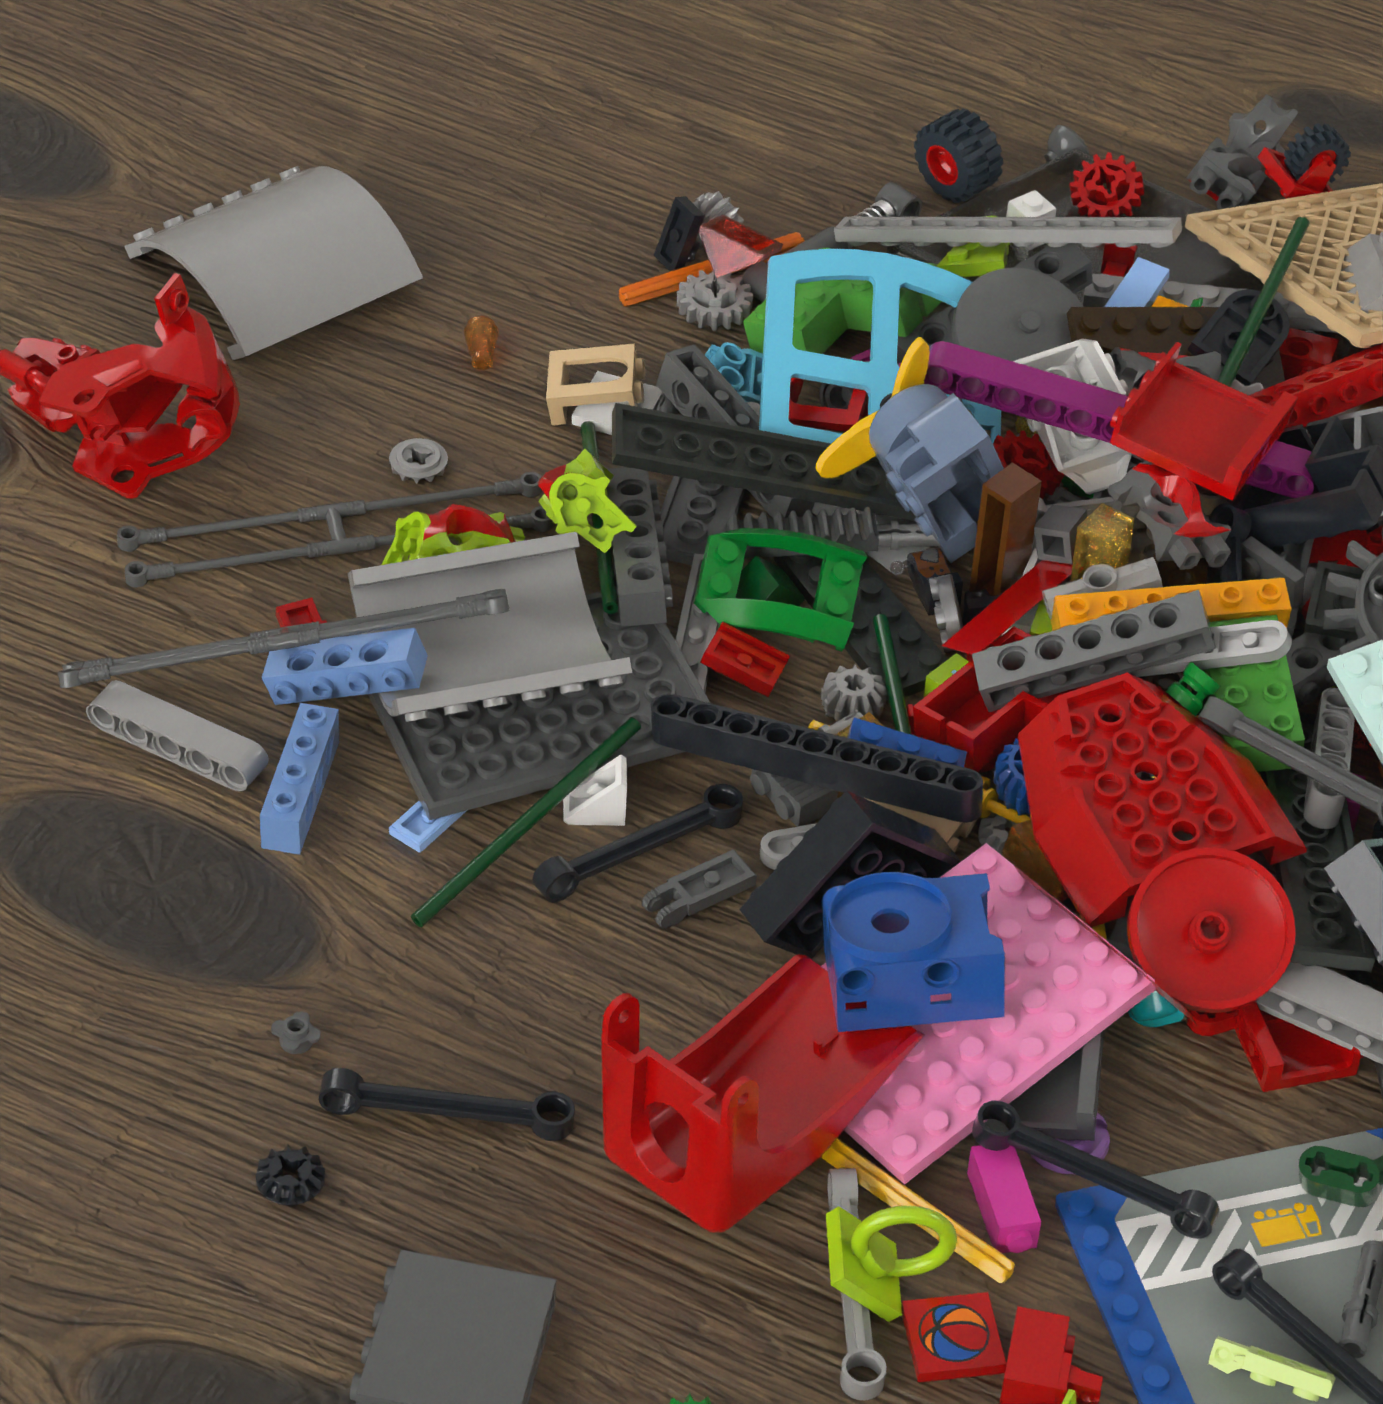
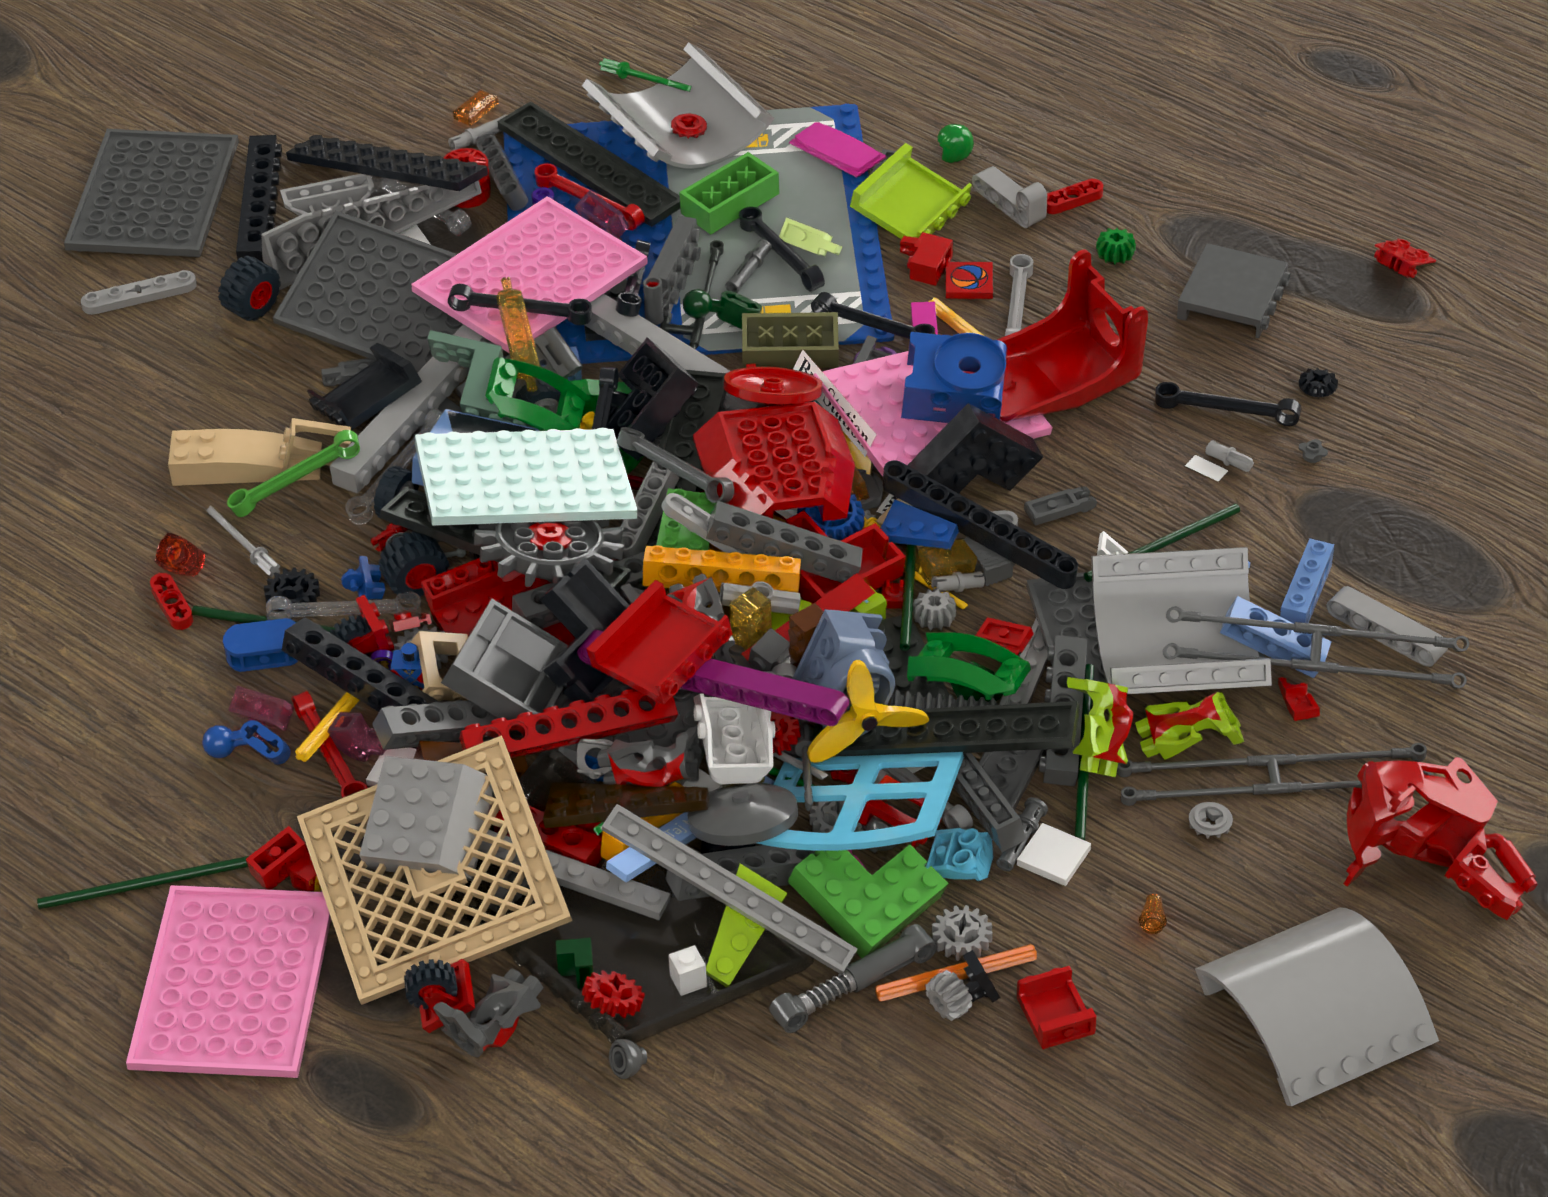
camera: 165 degrees left, 0 degrees up
(435, 1004) = (1229, 456): none -> light grey axle
(471, 998) = (1206, 468): none -> white sticker
(560, 878) = (1114, 526): black piece -> none
(561, 394) = (1047, 858): tan panel -> none
(582, 235) = (1055, 1007): none -> red panel
(734, 245) = (937, 935): clear red slope -> none
(866, 1261) = (1009, 296): lime tile -> none
(958, 155) = (729, 1027): black wheel -> none
(1117, 259) = (630, 929): red piece -> none
(1154, 203) = (575, 958): none -> dark green piece
(1226, 325) = (578, 787): black tile -> none
(1226, 1120) = (781, 337): none -> olive brick
(1263, 302) = (560, 787): dark green piece -> none

